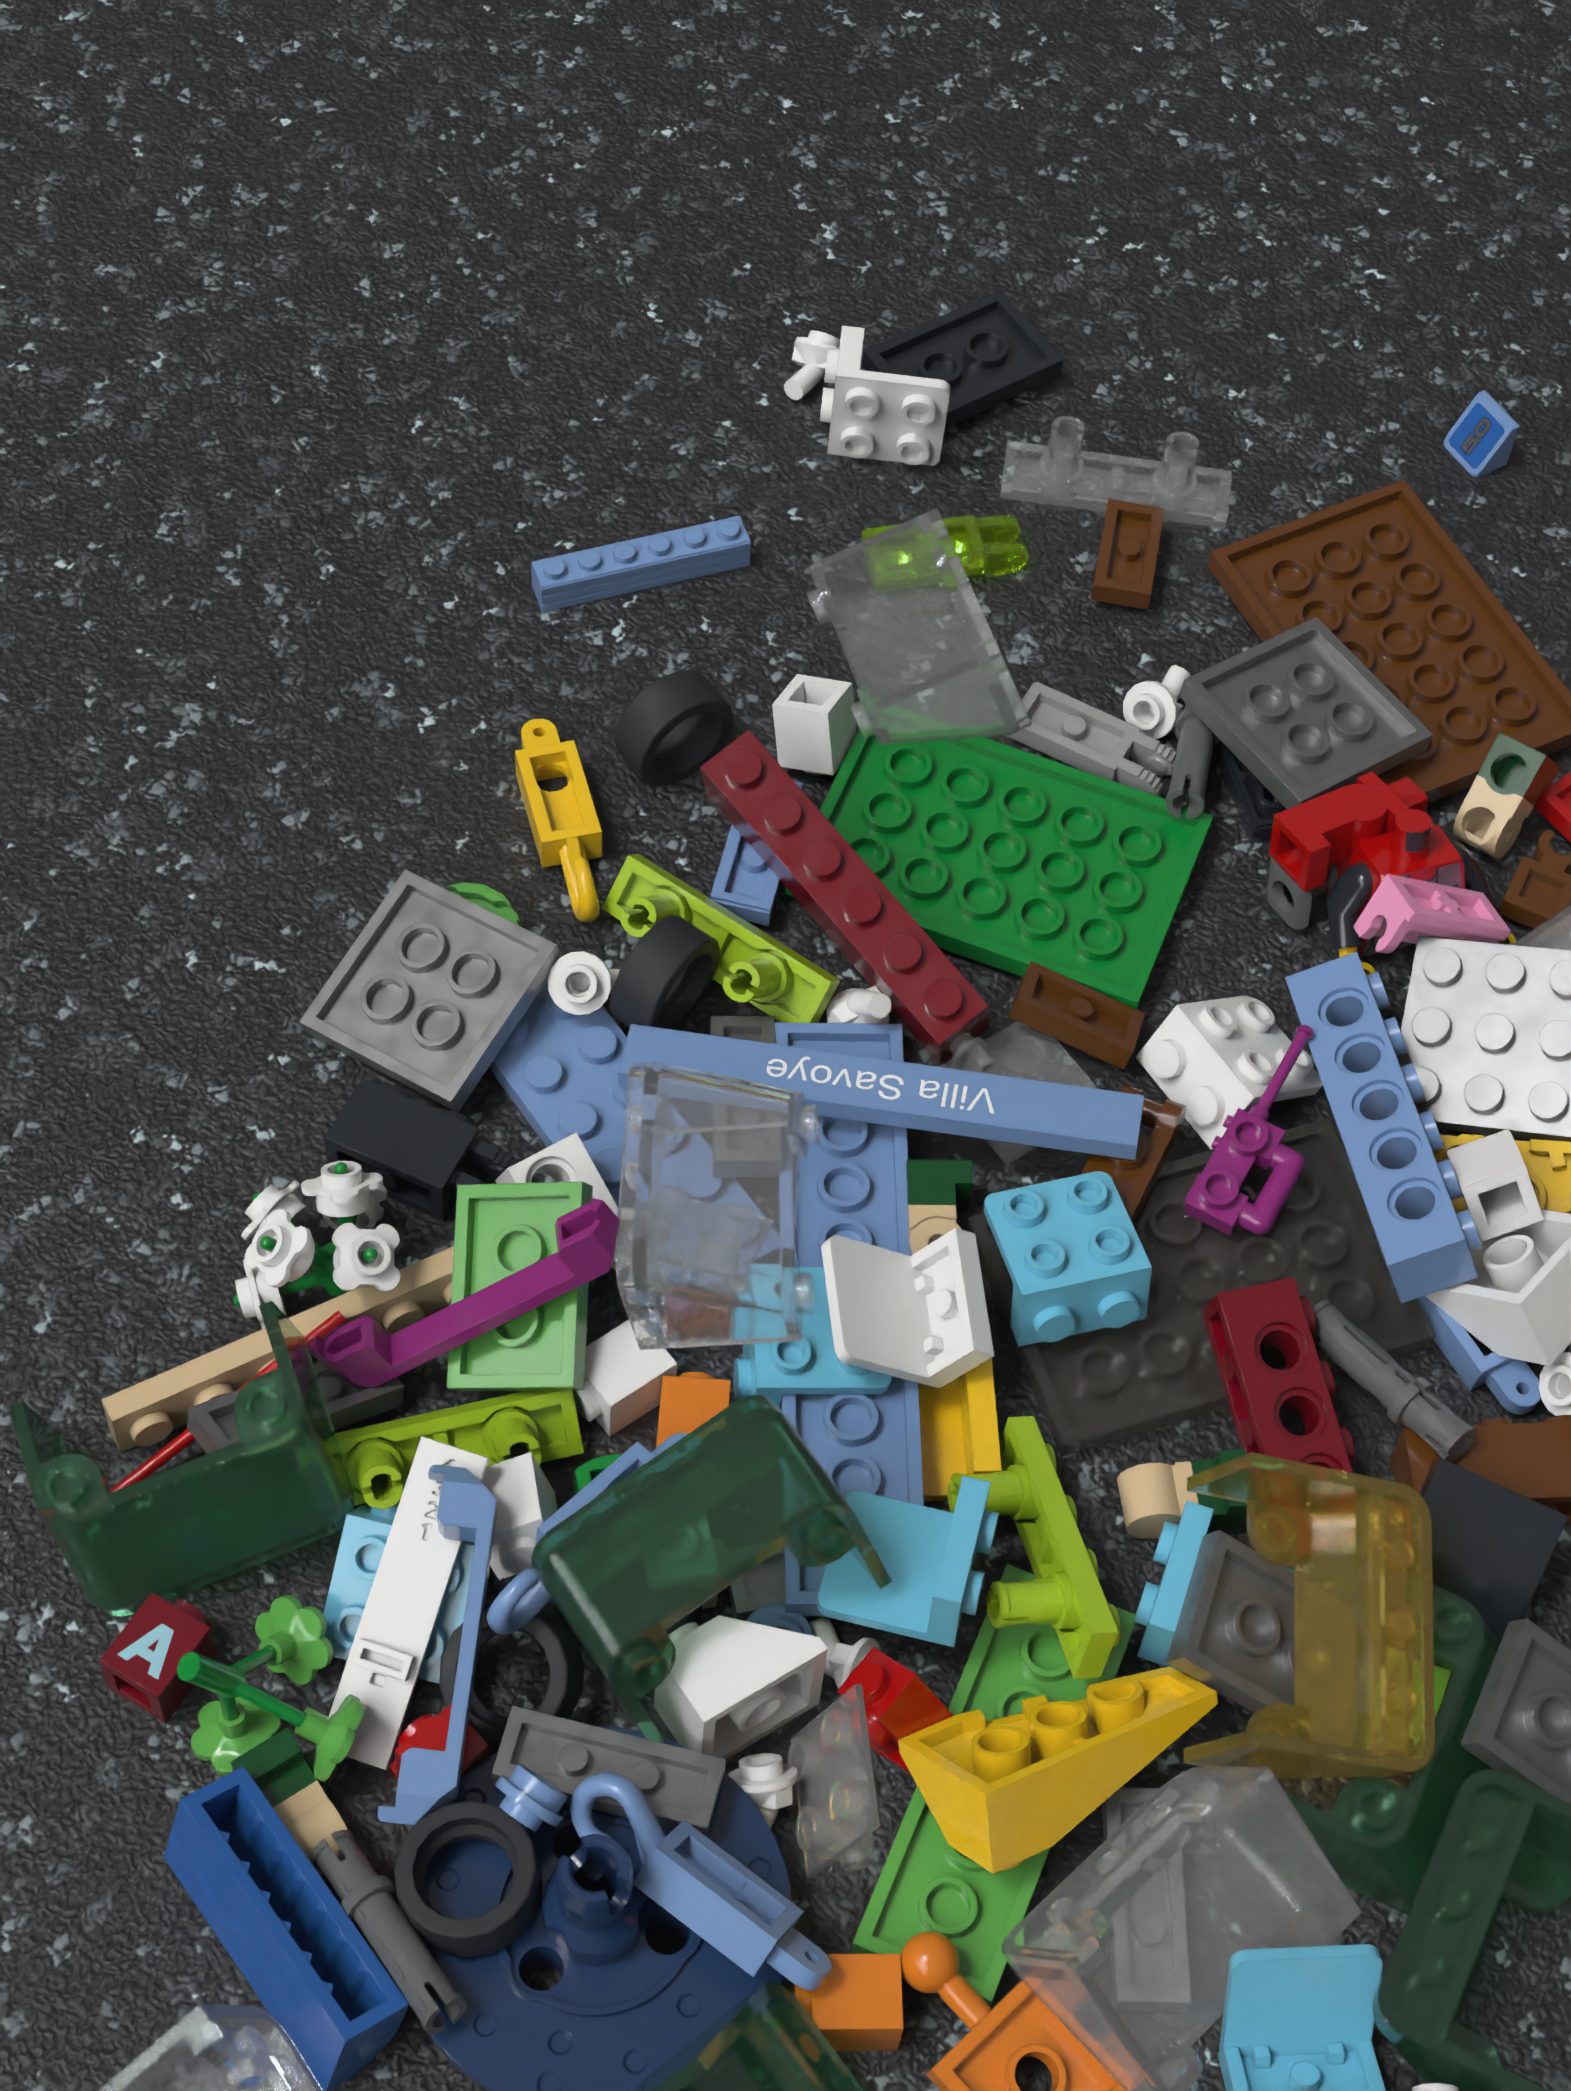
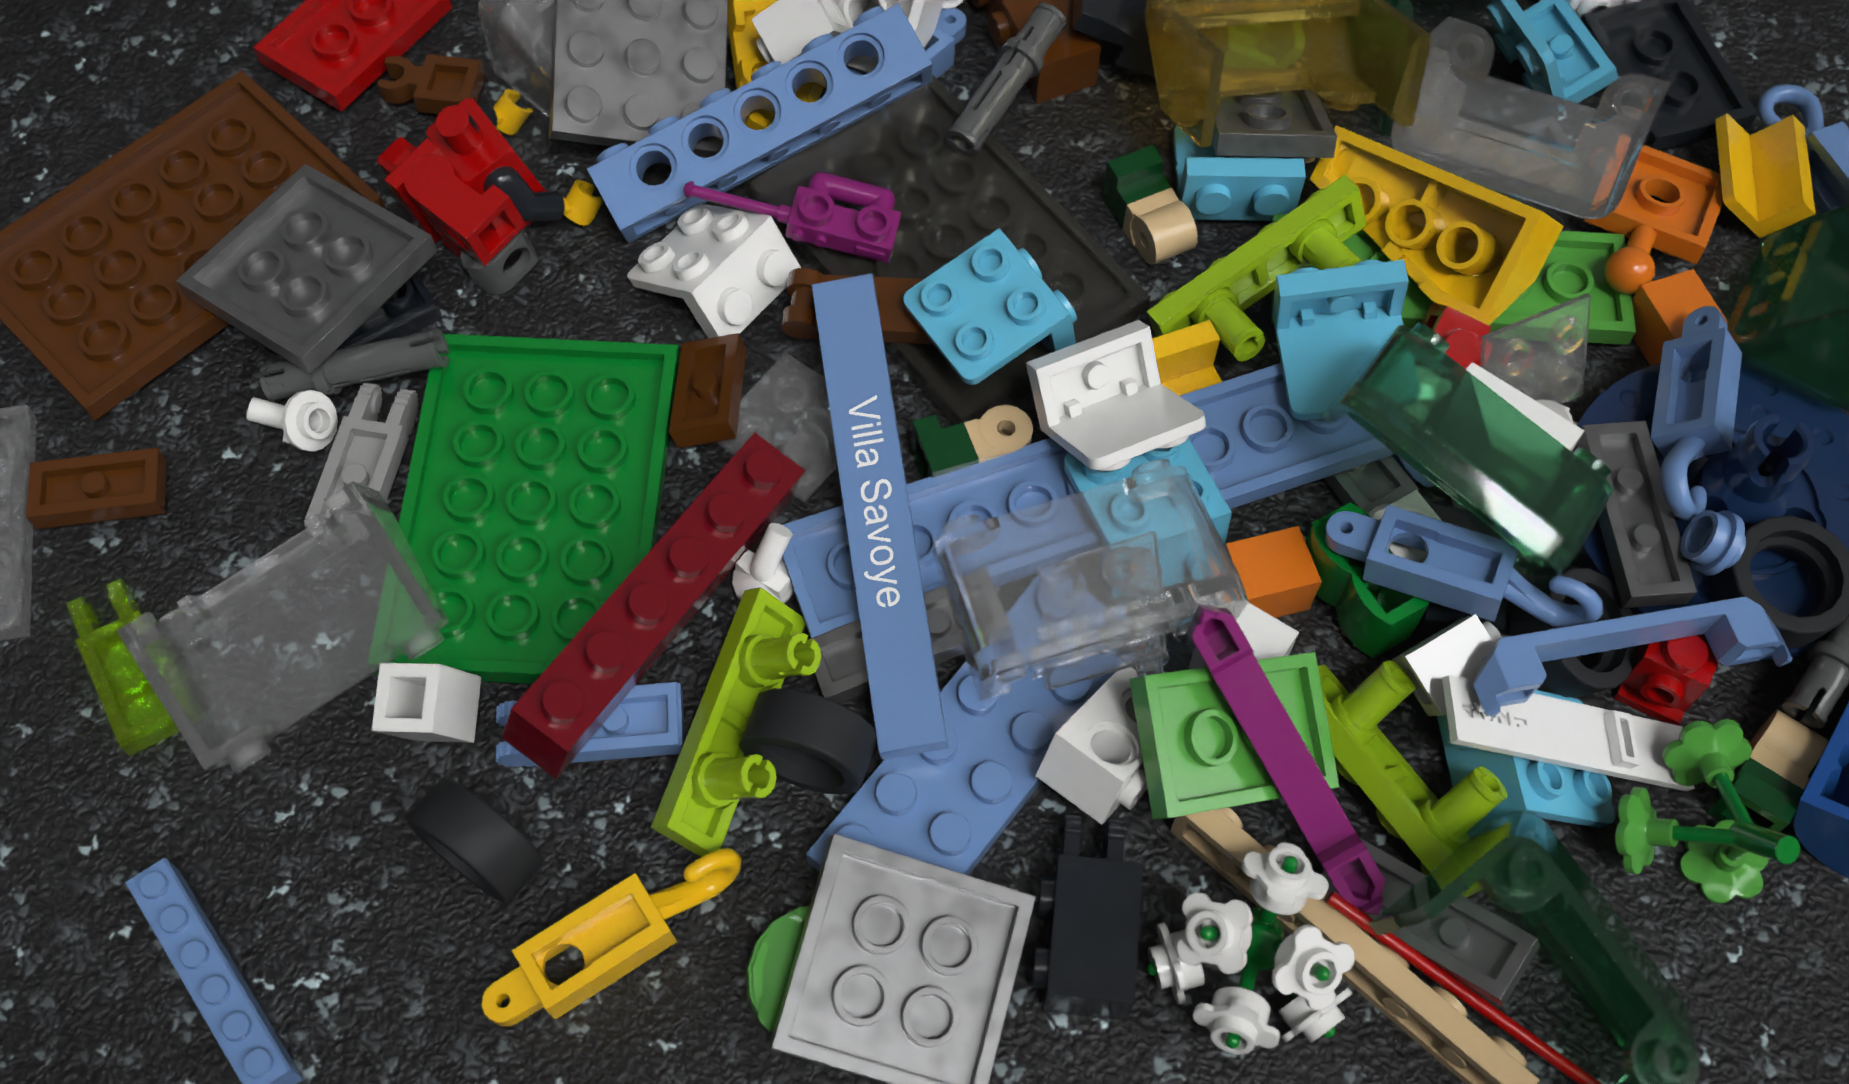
camera: 105 degrees left, 5 degrees up
(147, 1653) = (1712, 946): dark red brick -> none
(580, 982) = (845, 811): white plate -> none
(1255, 1392) = (1061, 143): dark red brick -> none
(1415, 908) = (529, 124): bright pink hinge -> none
(1503, 796) = (351, 111): leg -> none

